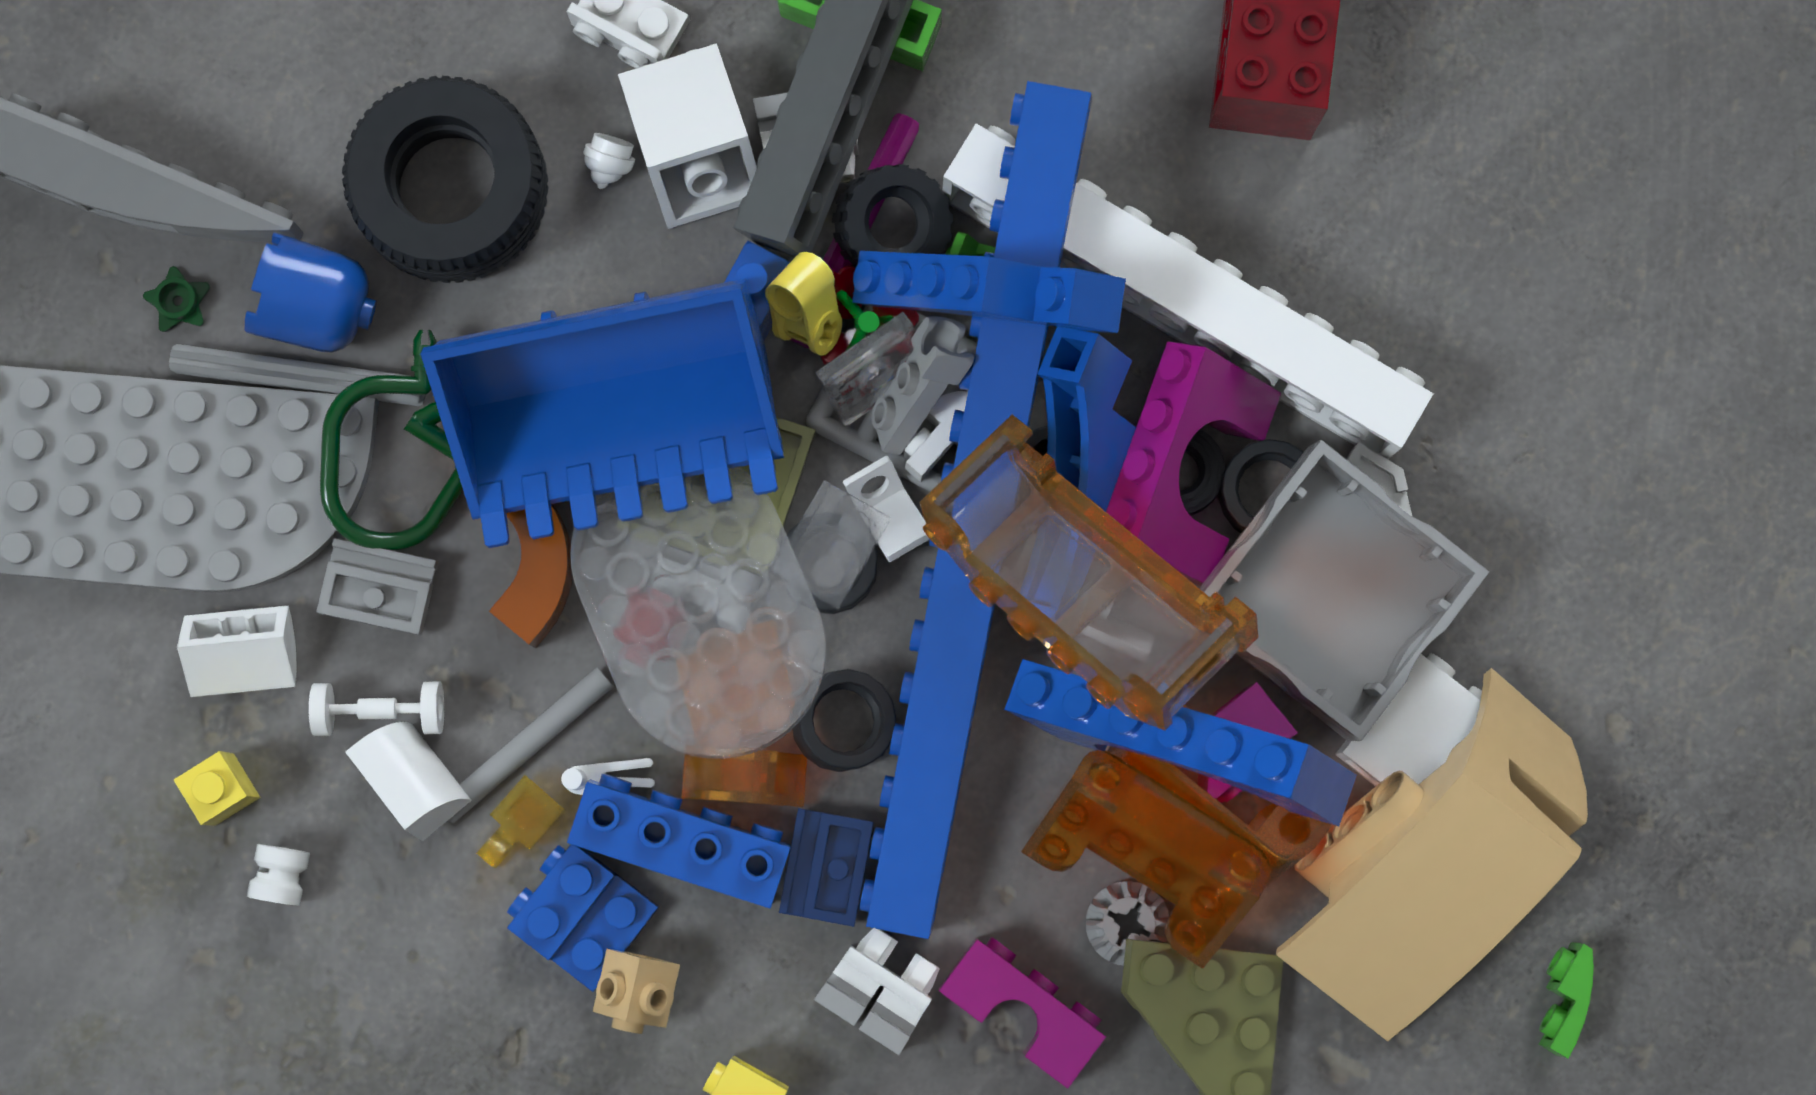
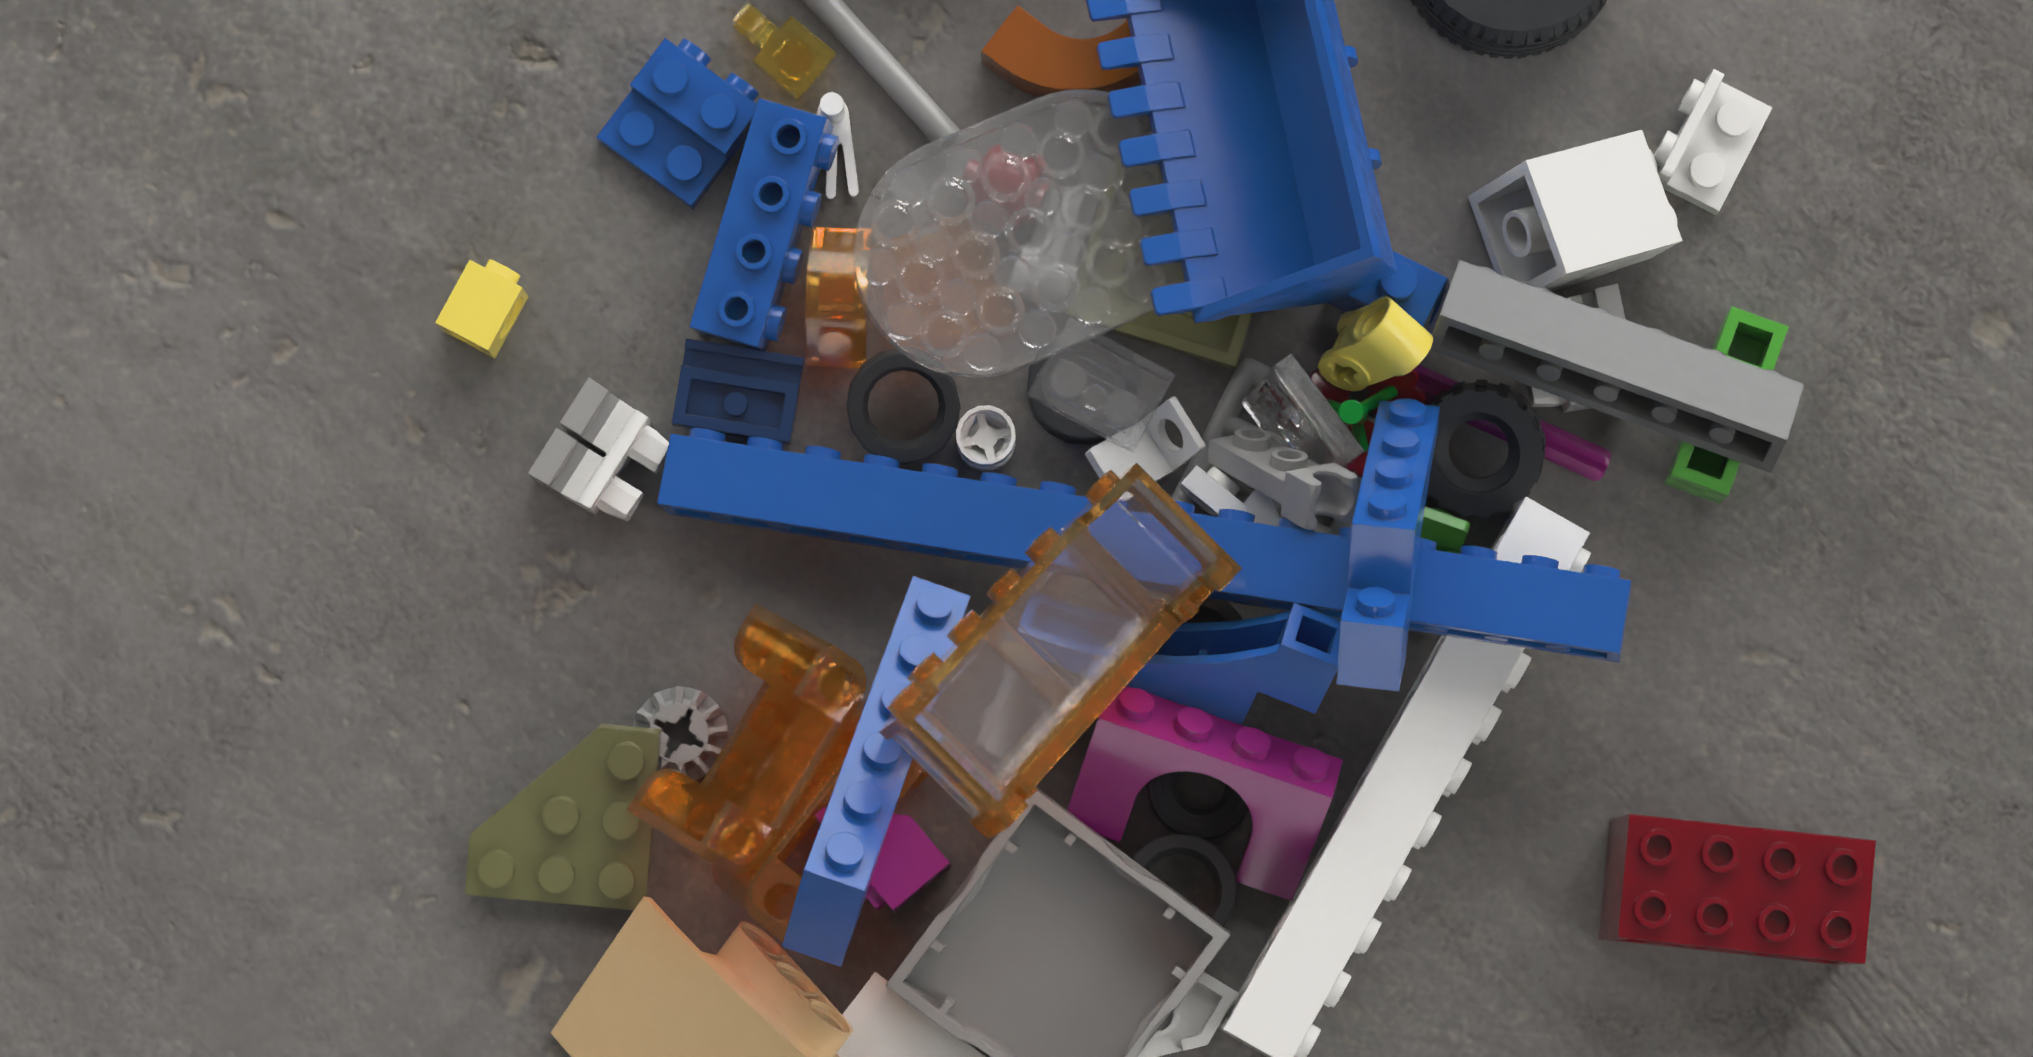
camera: 90 degrees right, 0 degrees up
(608, 158) = (1546, 124): white plate -> none
(635, 990) = (597, 182): tan brick -> none
(877, 643) = (983, 428): none -> white wheel
(1063, 1035) = (556, 661): magenta arch -> none

